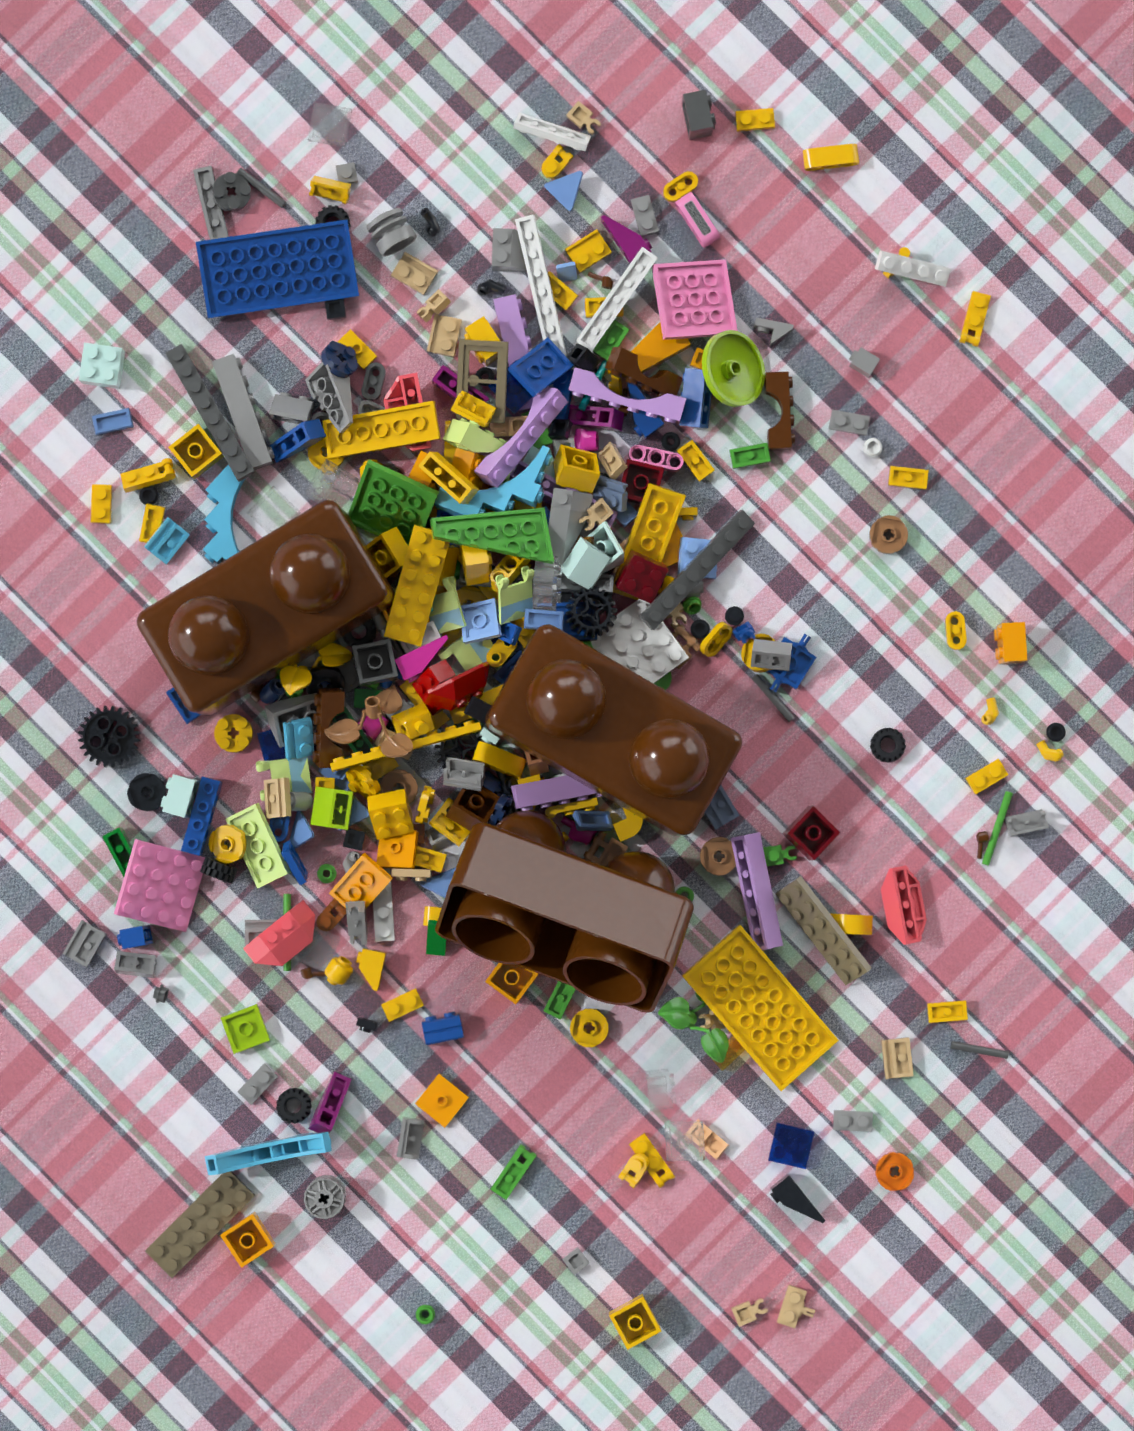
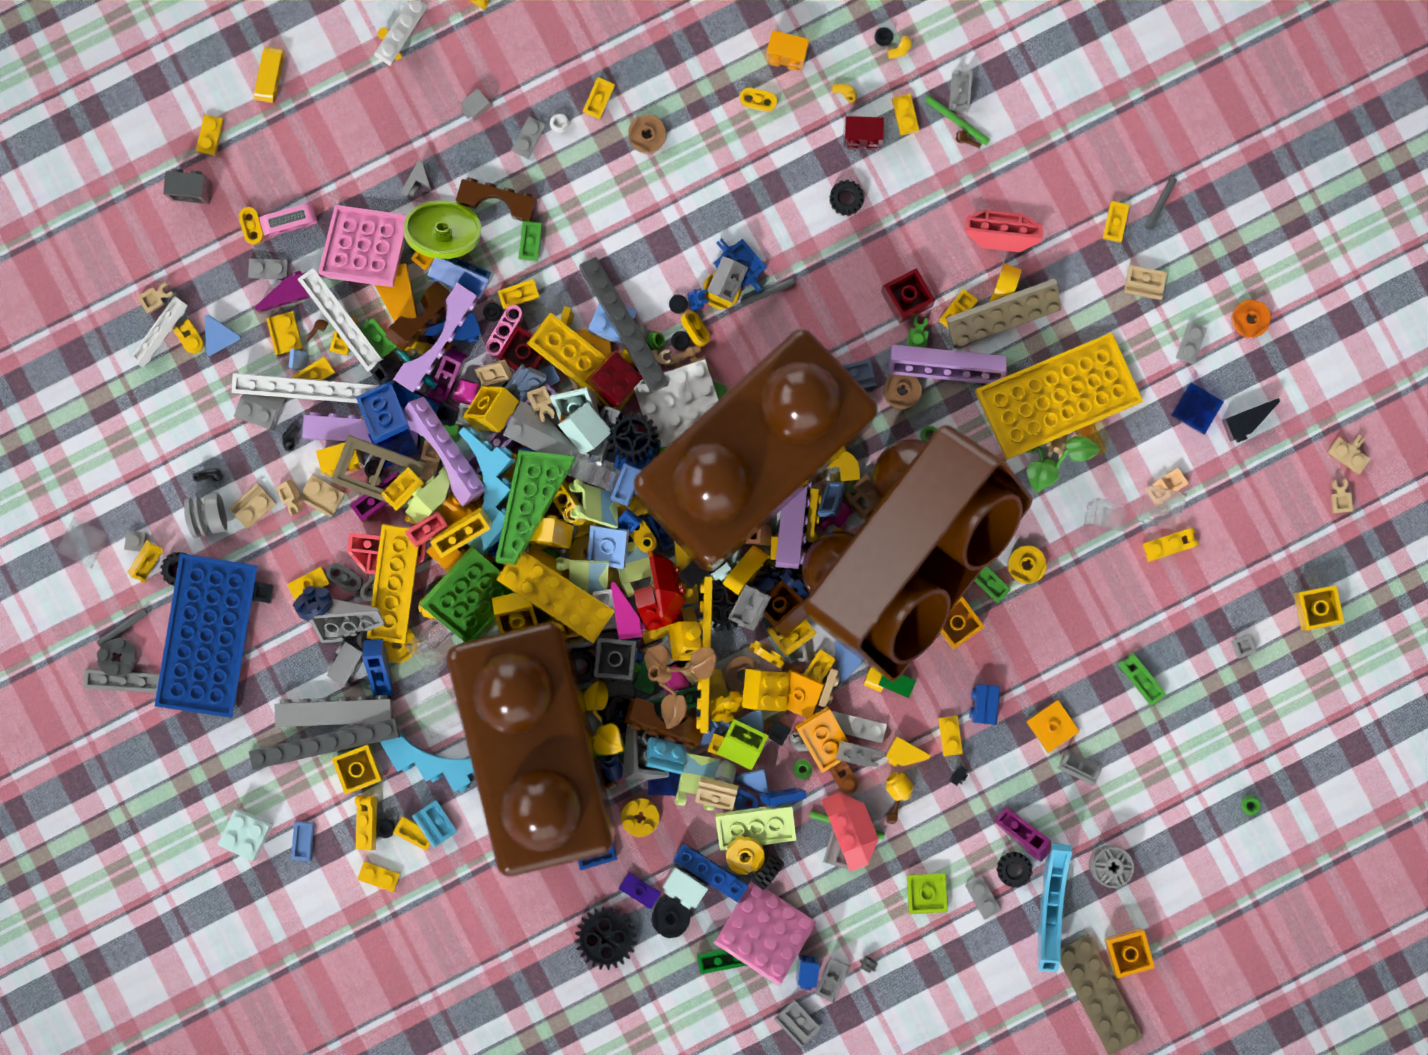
camera: 70 degrees left, 0 degrees up
(164, 754) = (639, 890): none -> dark purple plate
(441, 444) = (426, 529): none -> coral slope
(638, 1164) = (1170, 558): yellow plate -> none
(821, 888) = (962, 303): none -> yellow slope
(955, 741) = (863, 132): none -> dark red brick

